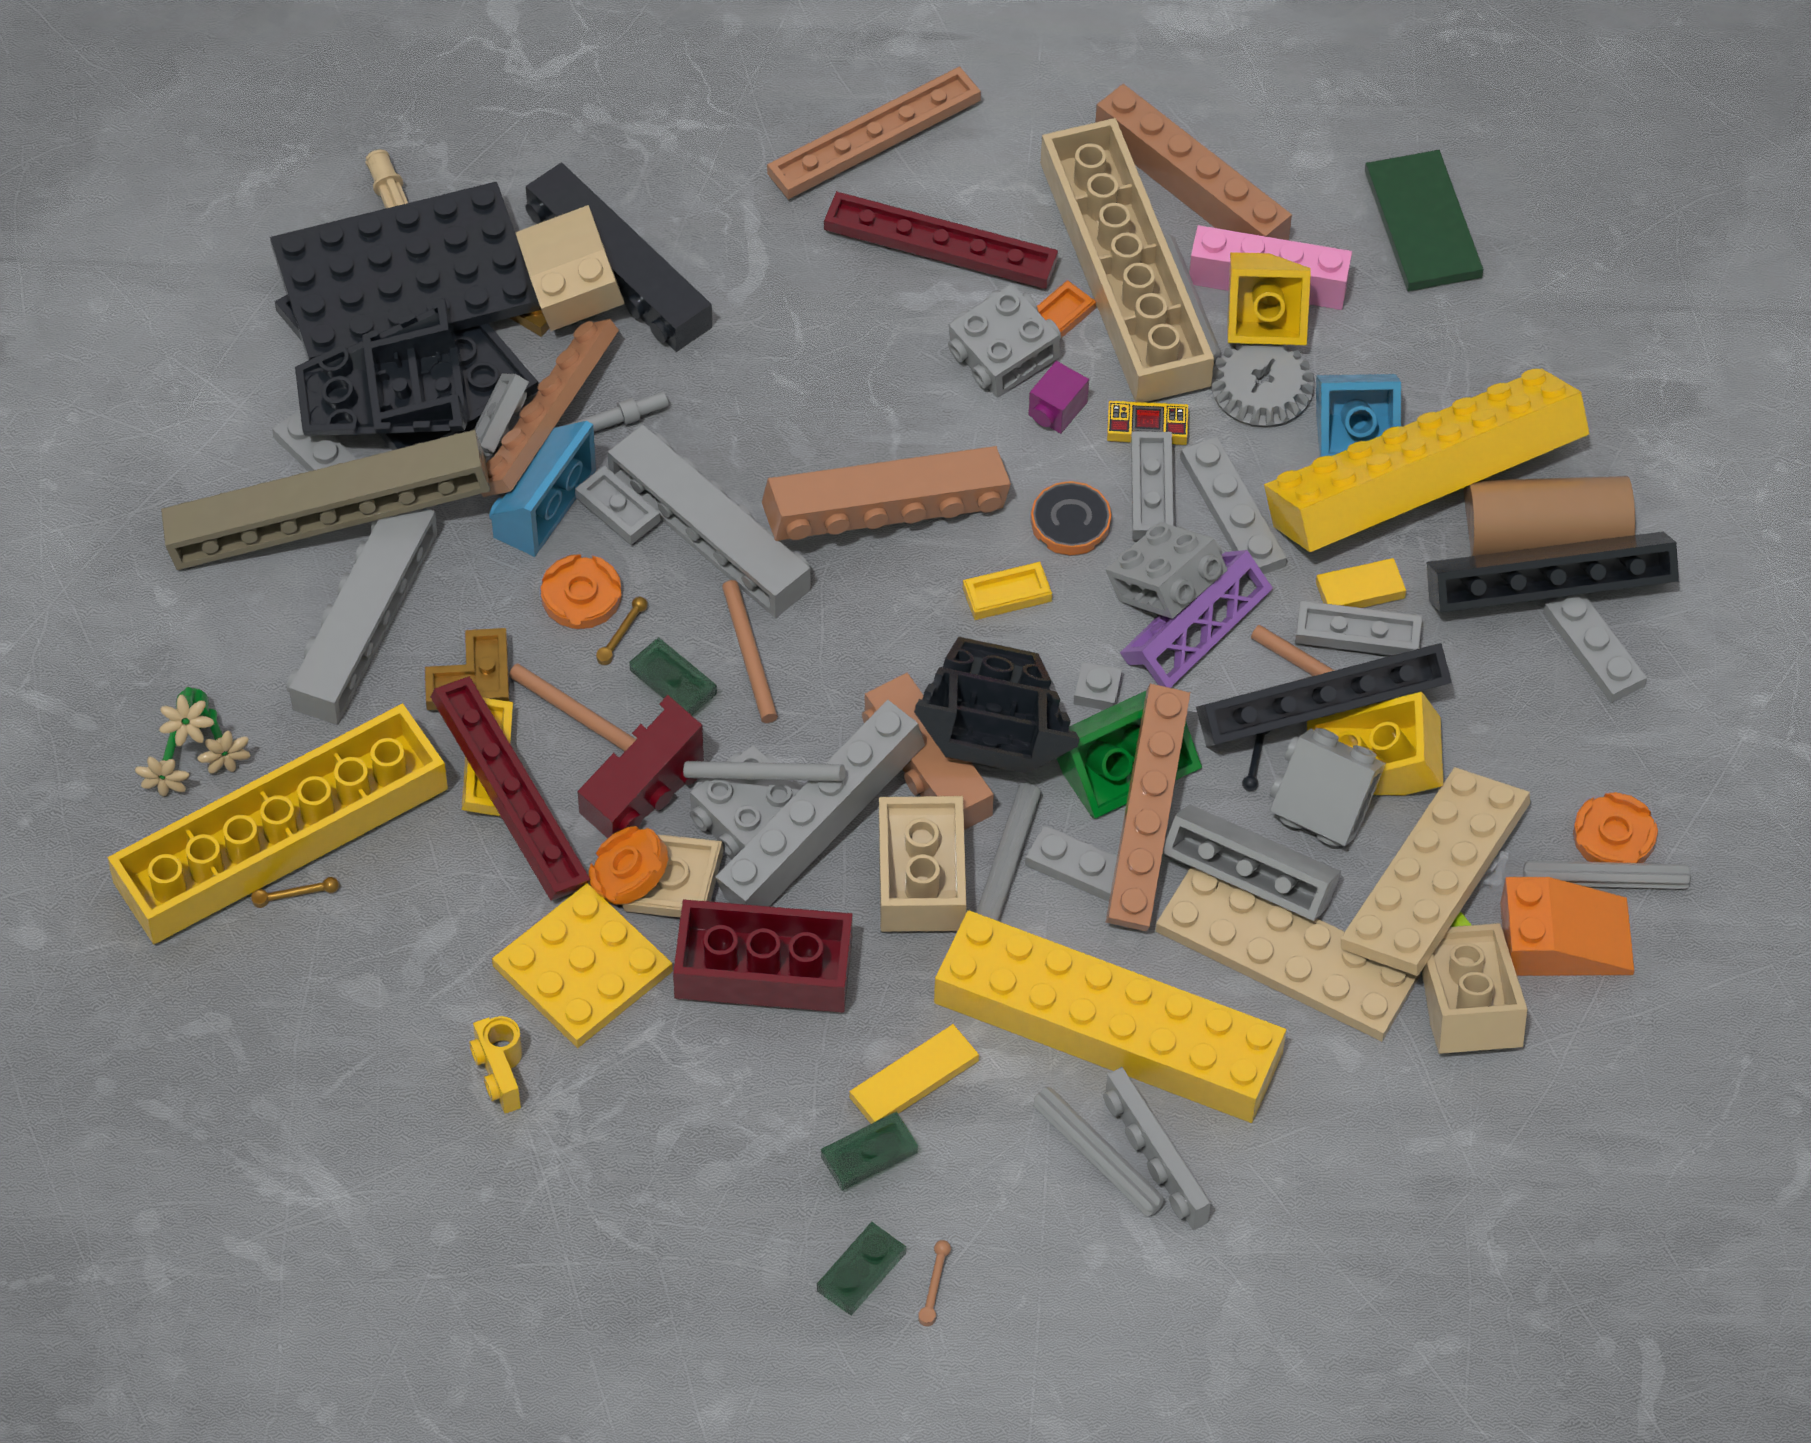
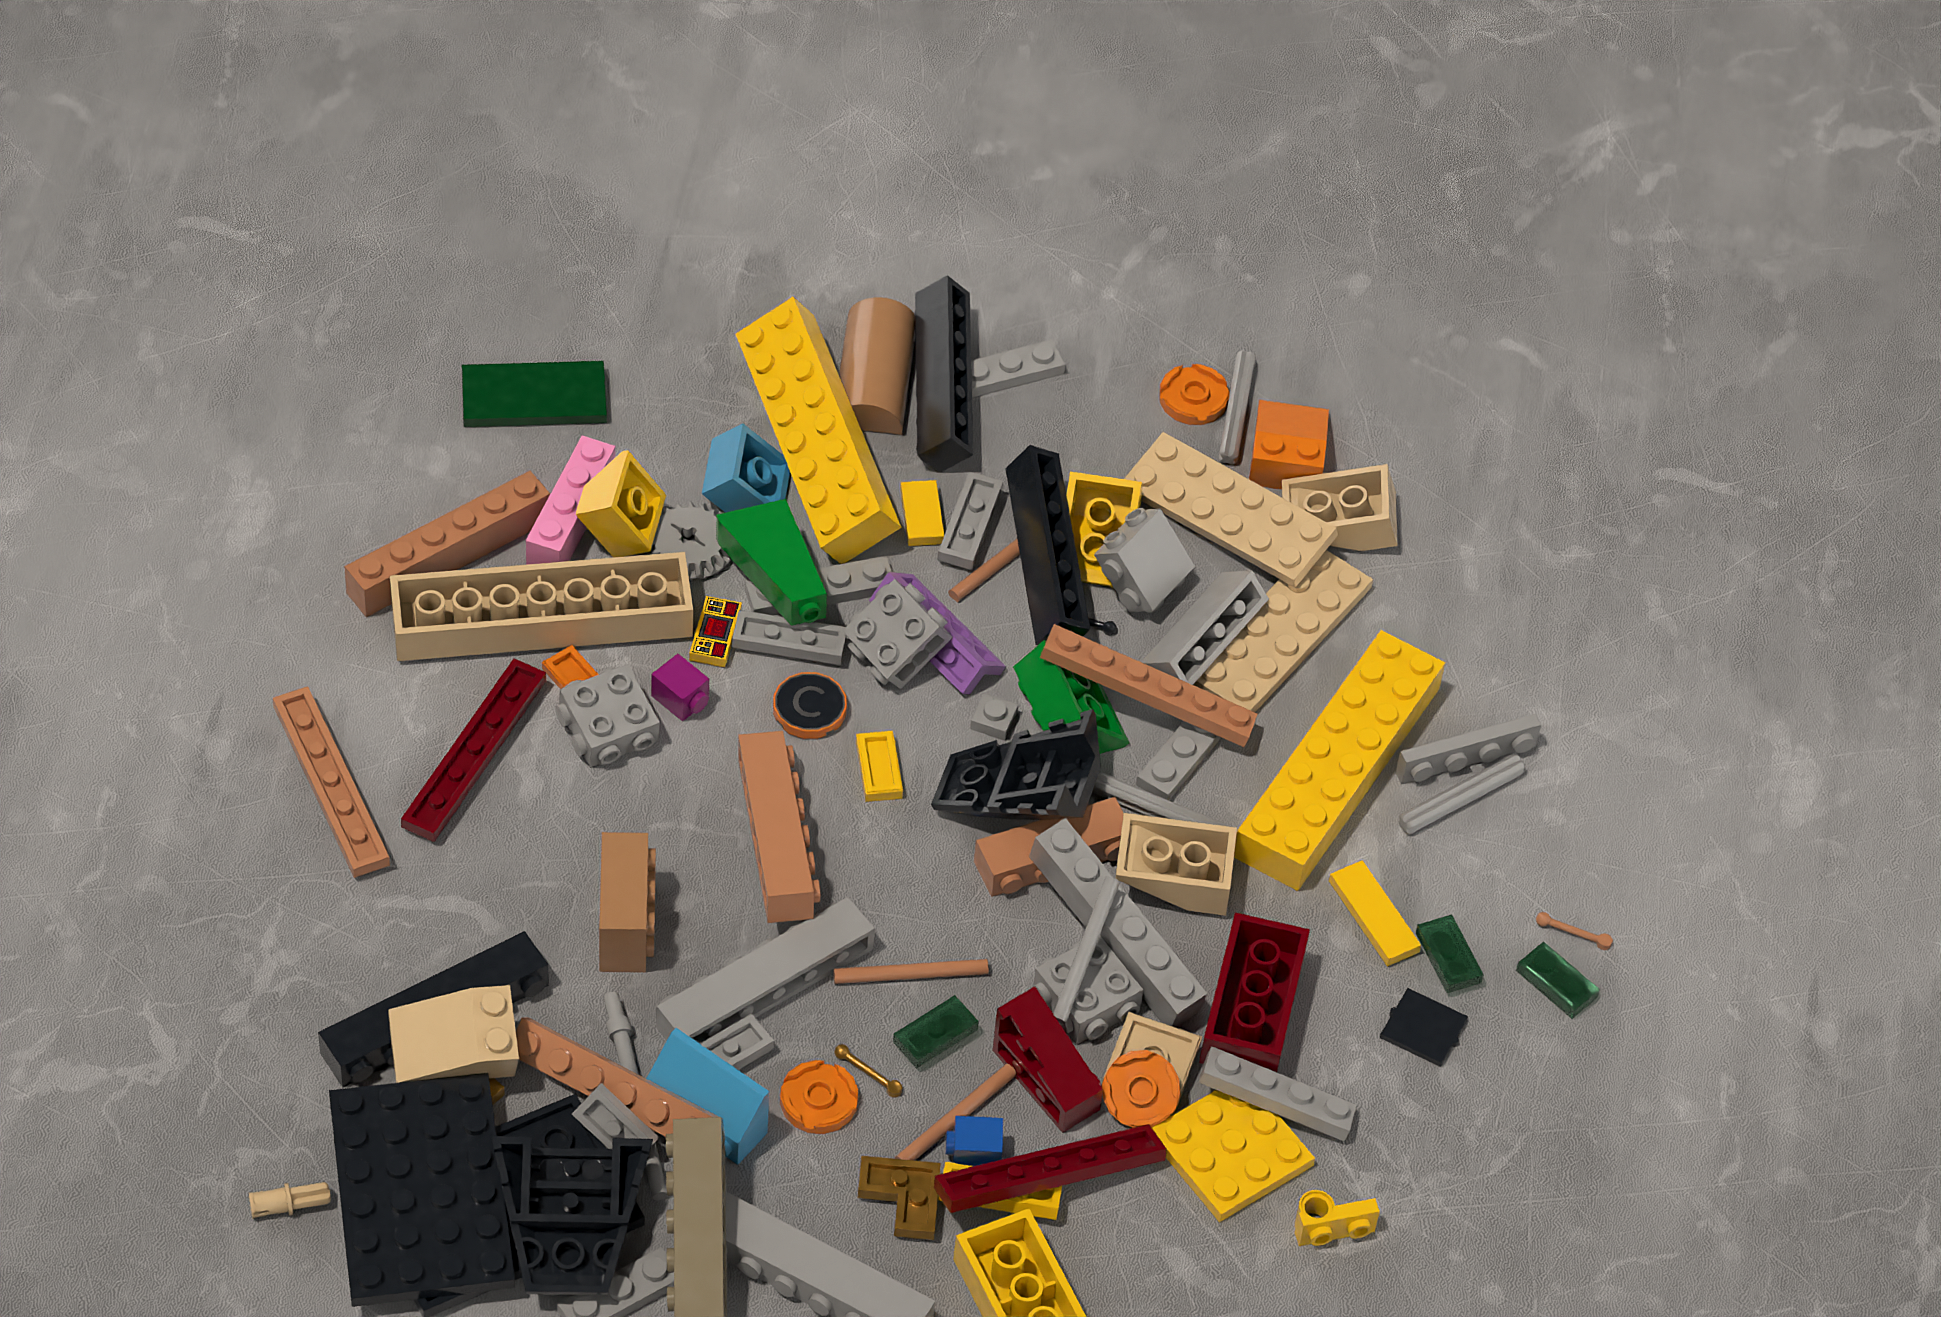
camera: 85 degrees left, 5 degrees down
(539, 728) = (975, 1140): none -> blue brick
(644, 992) = (1277, 1093): none -> light grey plate
(763, 379) = (626, 902): none -> medium nougat brick
(774, 1139) = (1423, 1027): none -> black piece
(1234, 446) = (775, 558): none -> green slope

